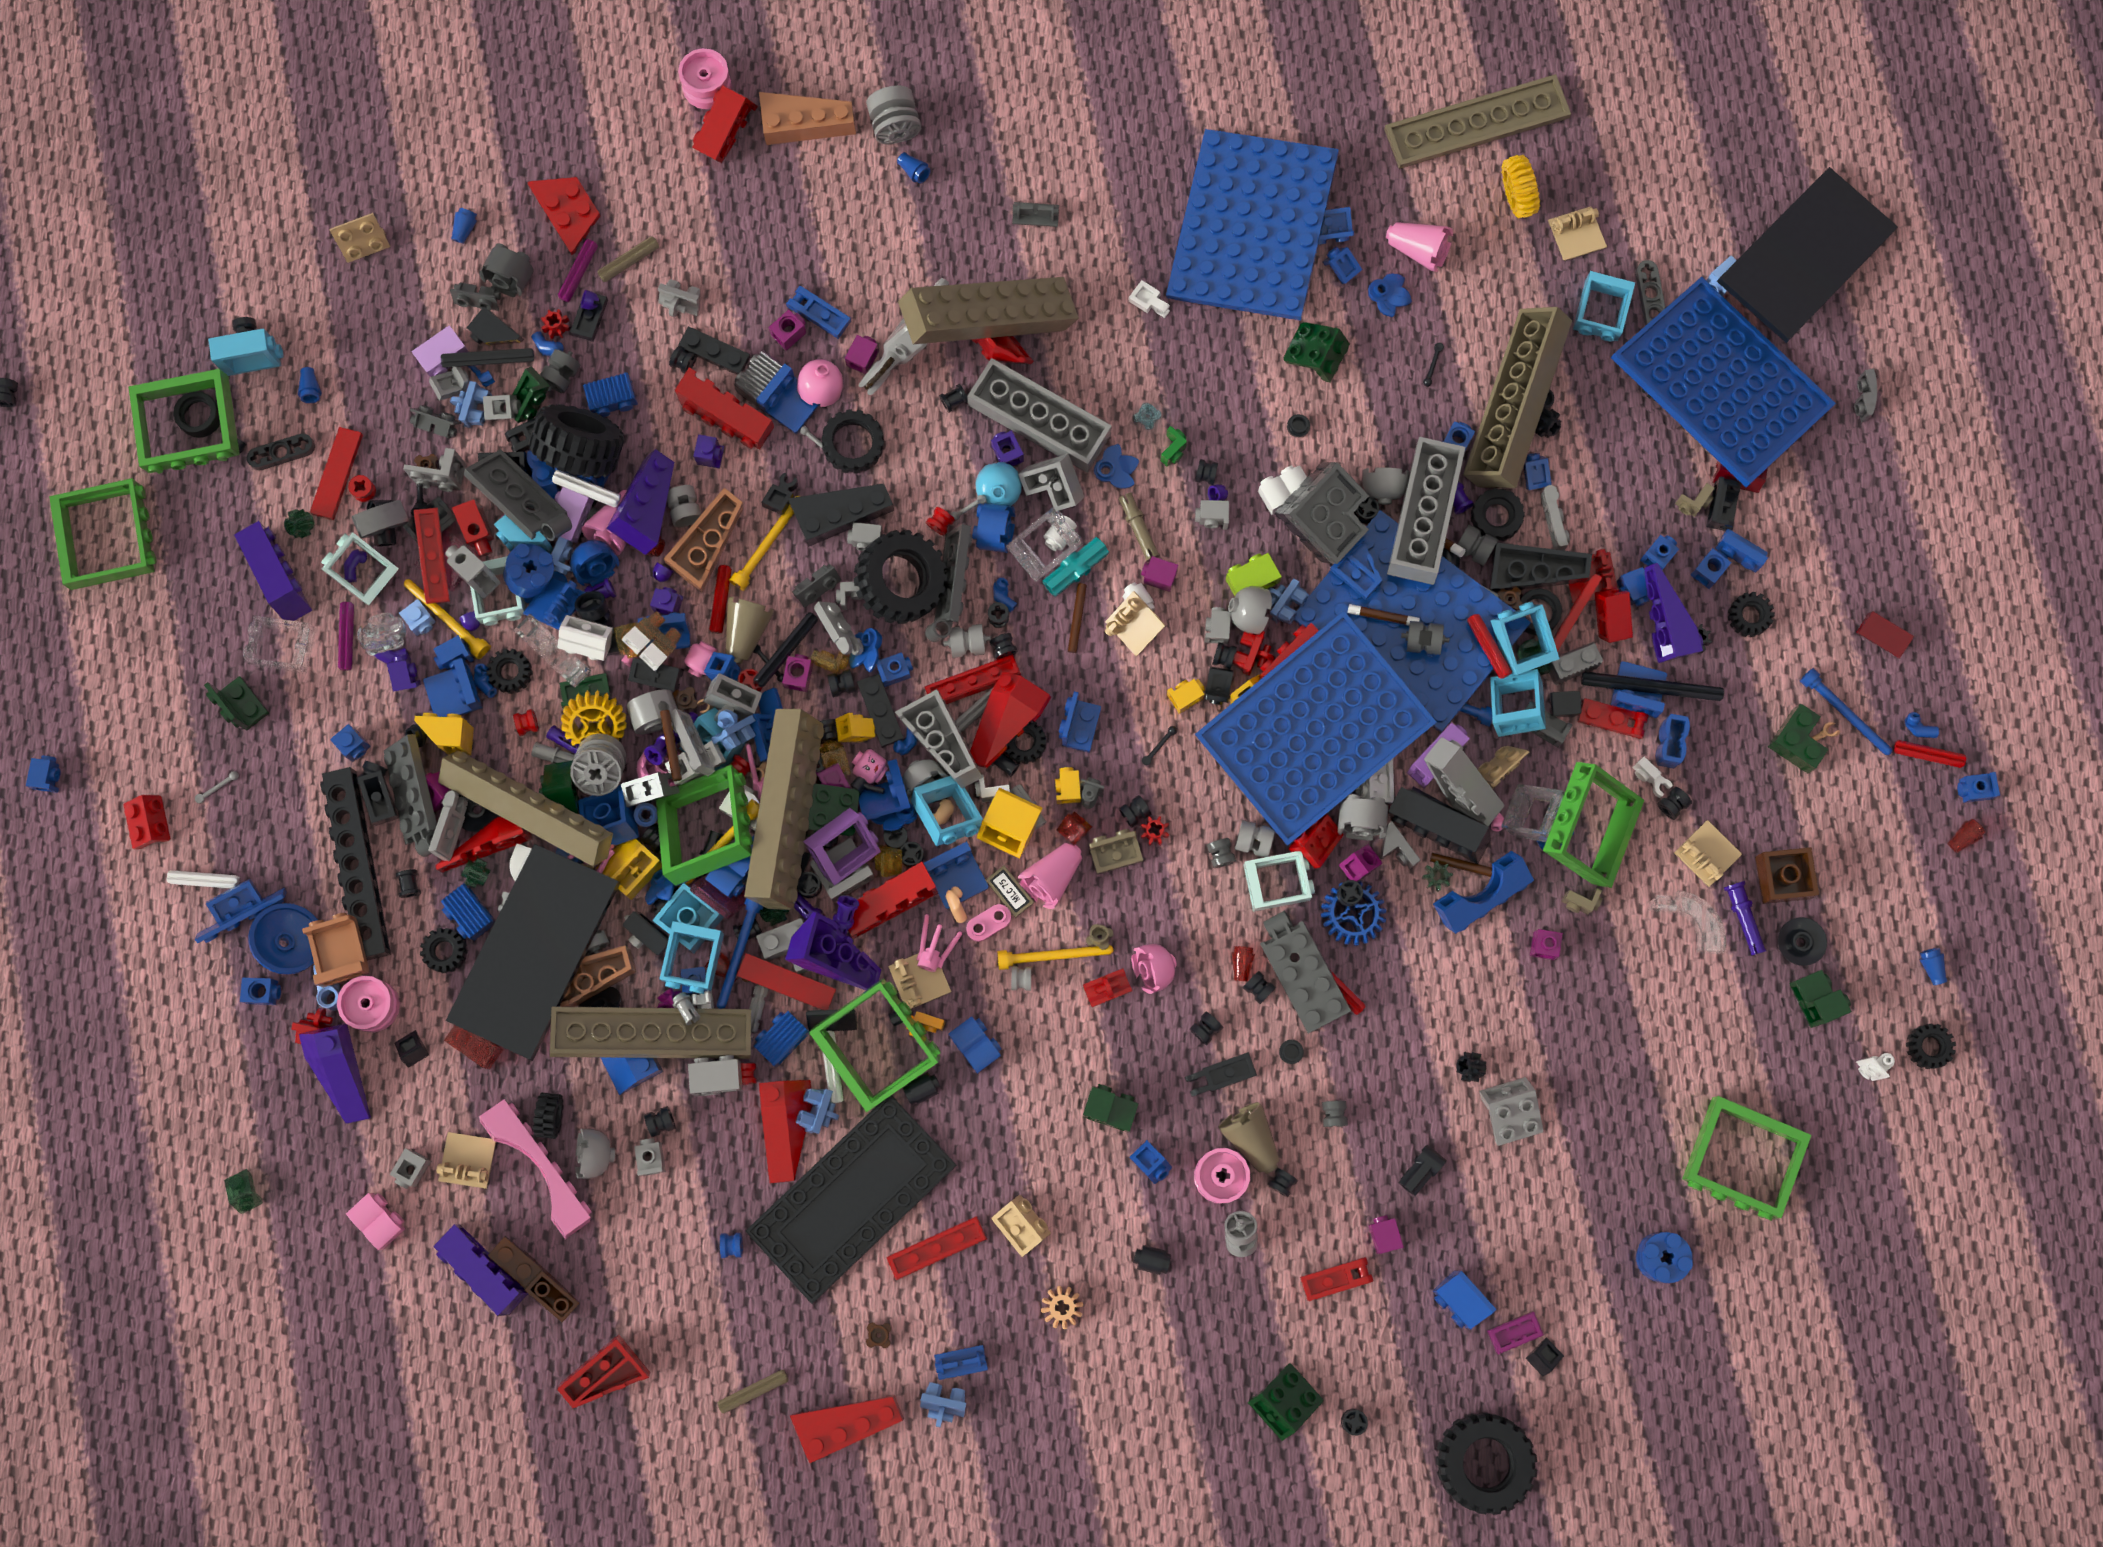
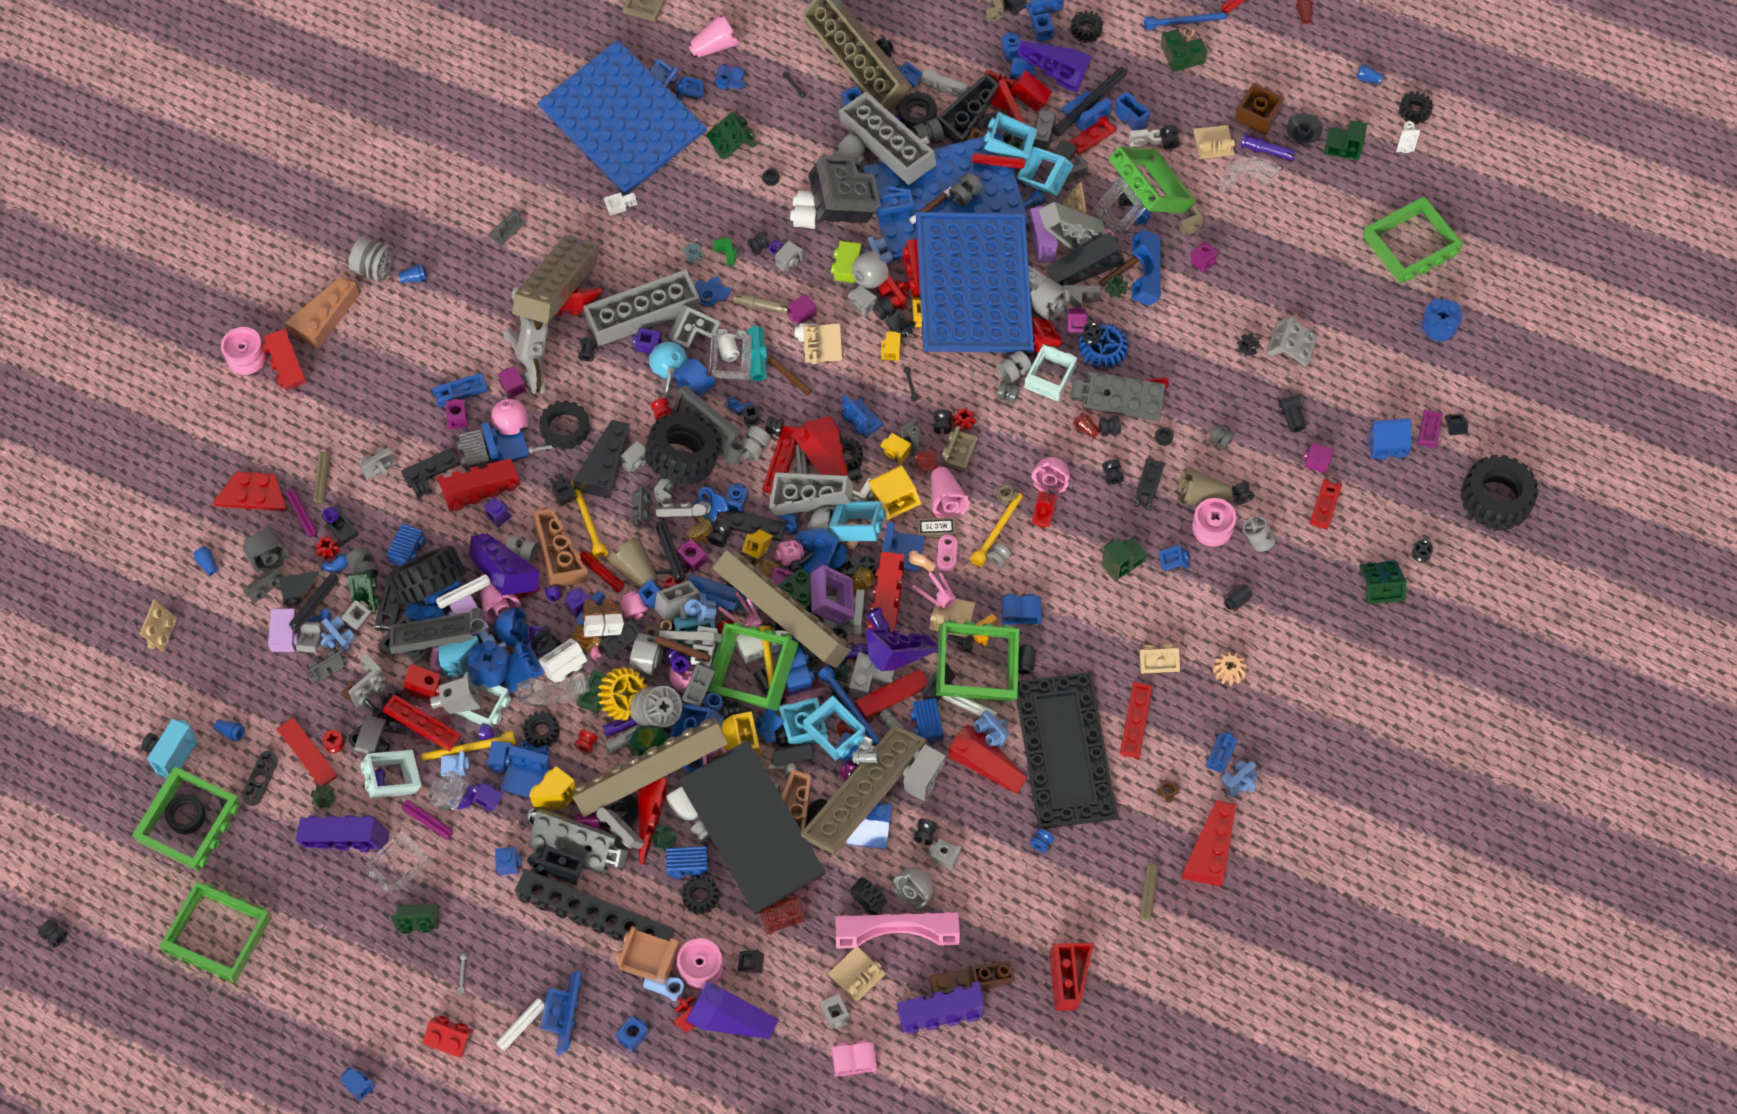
camera: 55 degrees left, 15 degrees down
(285, 924) = (610, 989): blue dish -> none
(408, 883) = (635, 888): black bush -> none

